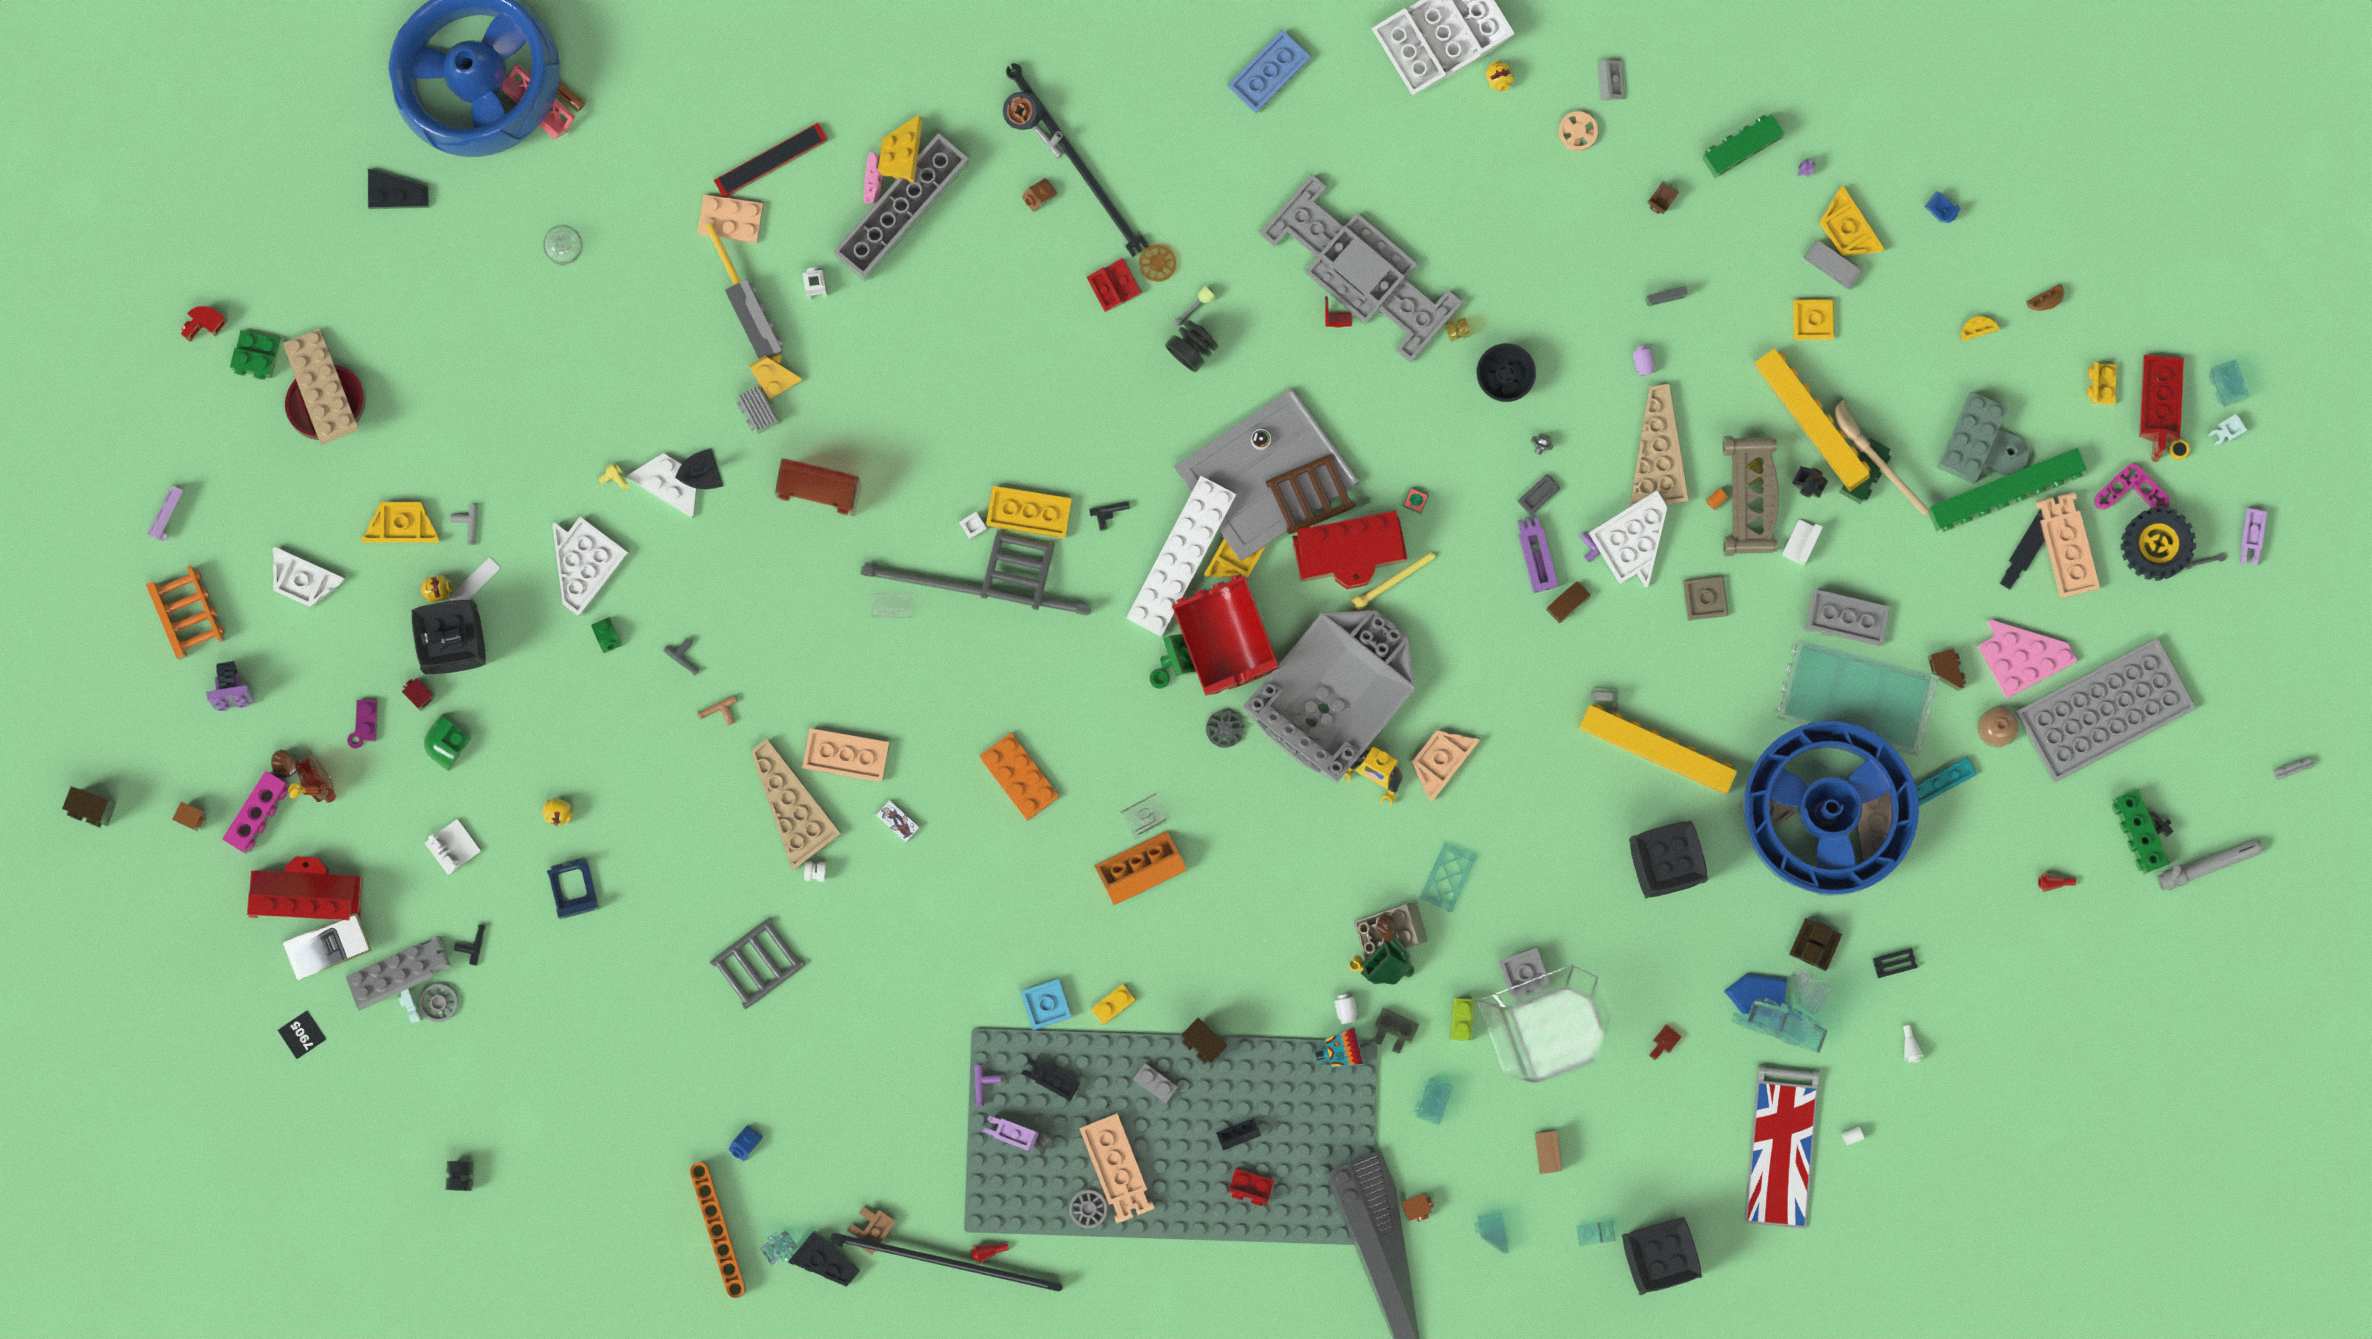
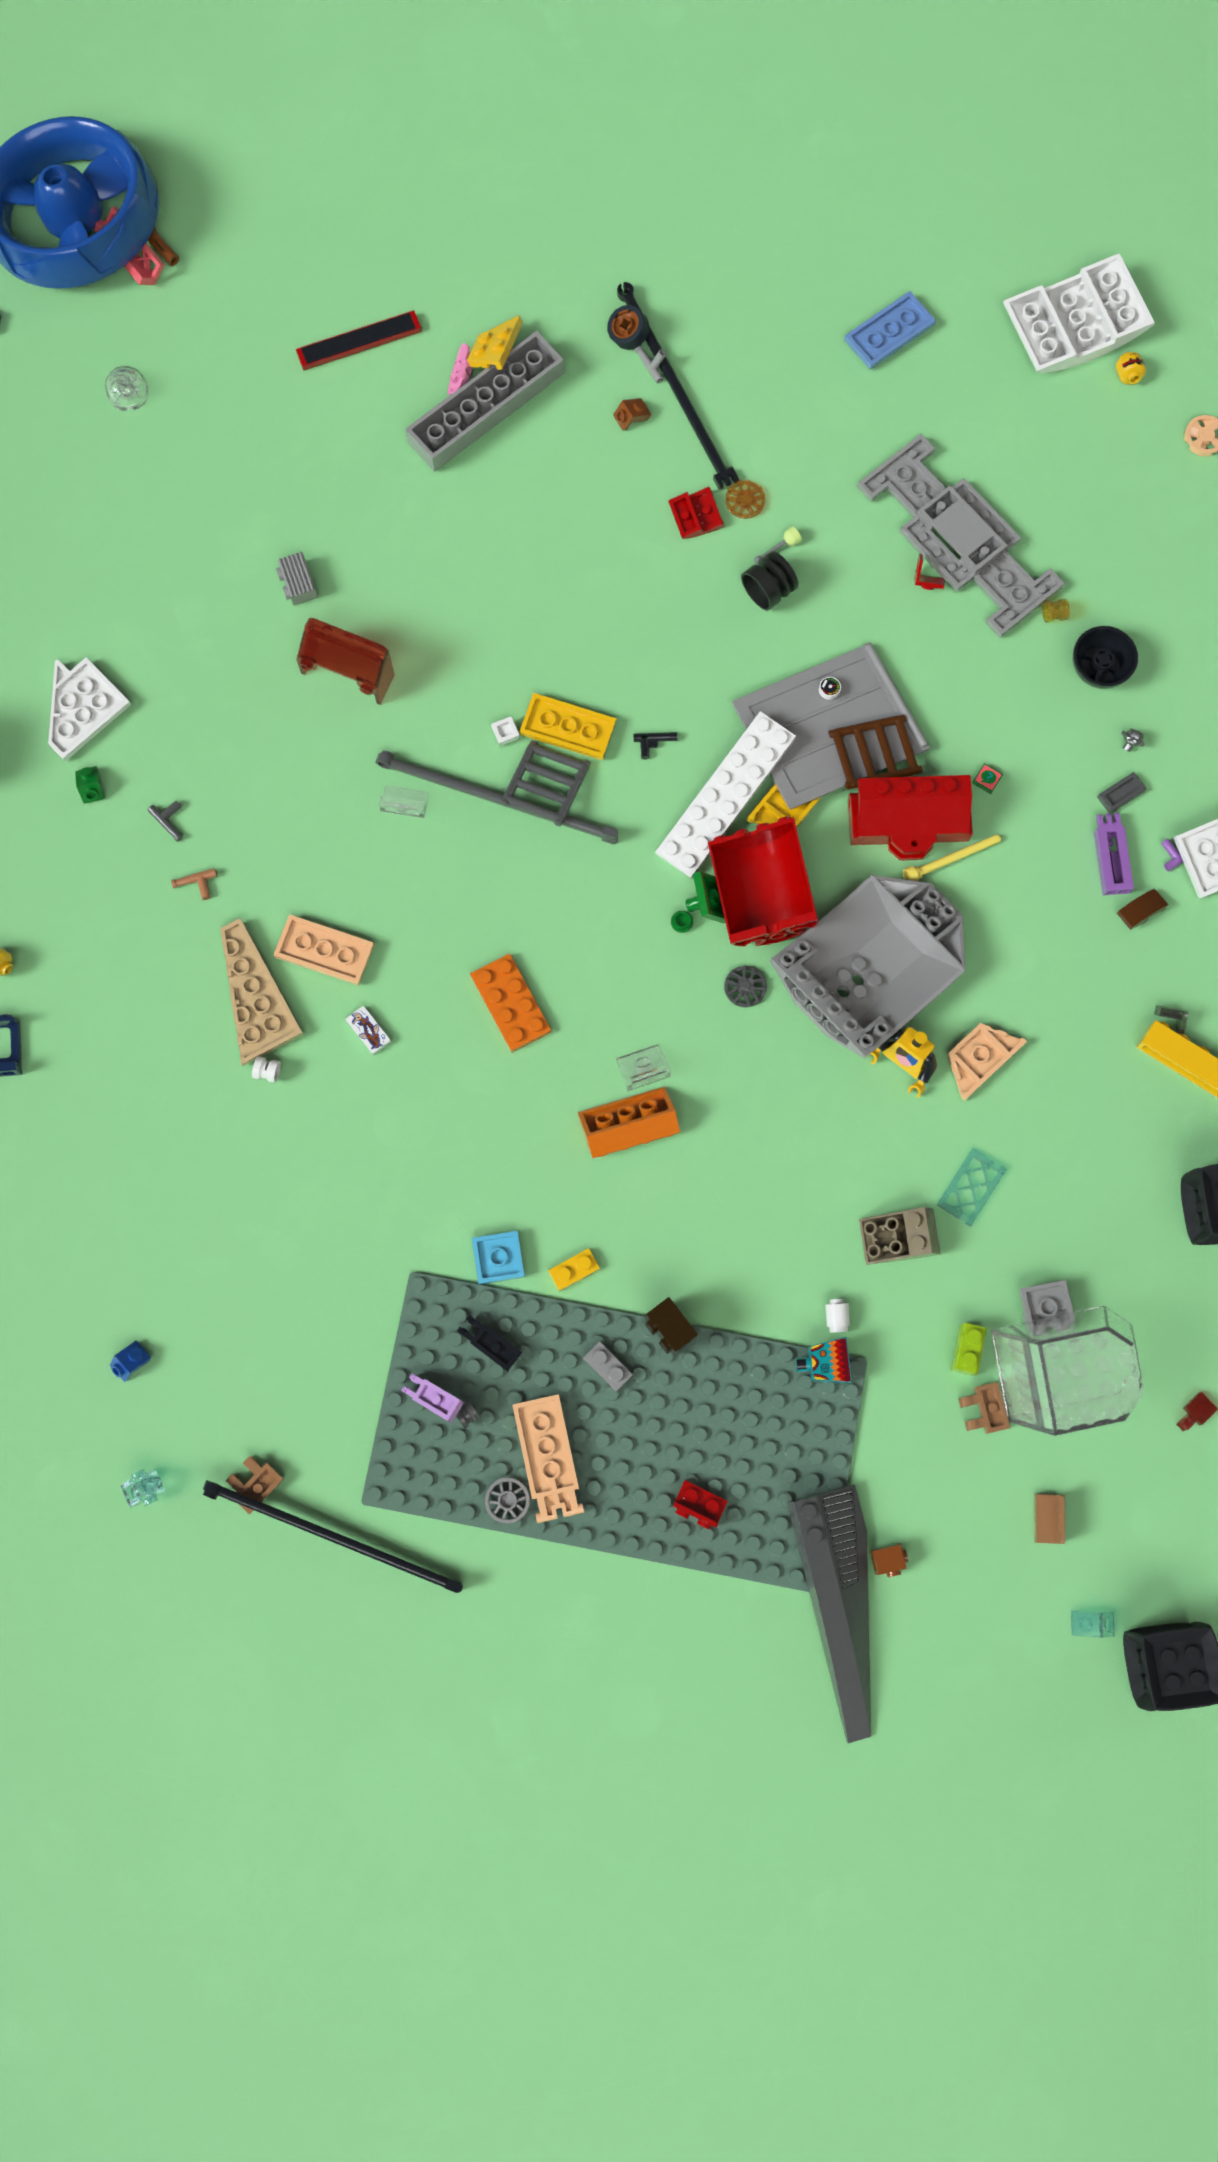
camera: 10 degrees right, 5 degrees down
(614, 473) = (131, 620): light yellow piece -> none
(660, 480) = (189, 639): white wing -> none
(700, 471) = (224, 632): black shield -> none
(710, 1222) = (85, 1466): orange beam -> none
(731, 218) = (306, 390): light nougat plate -> none
(735, 950) = (161, 1142): dark grey bar -> none
(747, 308) = (307, 479): piece -> none
(773, 376) = (319, 547): yellow wing -> none
(816, 289) = (381, 453): white window -> none
(823, 1259) = (194, 1511): black wing -> none
(980, 1080) = (409, 1331): medium lavender piece -> none
(983, 1252) = (378, 1531): red cone -> none
(1238, 1134) = (694, 1440): black plate -> none
(1389, 961) = (896, 1268): dark green torso -> none
(1395, 1025) = (892, 1344): clear smoke plate -> none
(1433, 1101) = (923, 1438): clear light blue brick -> none
(1487, 1066) = (990, 1406): none -> medium nougat plate
(1492, 1231) = (974, 1602): clear light blue slope -> none

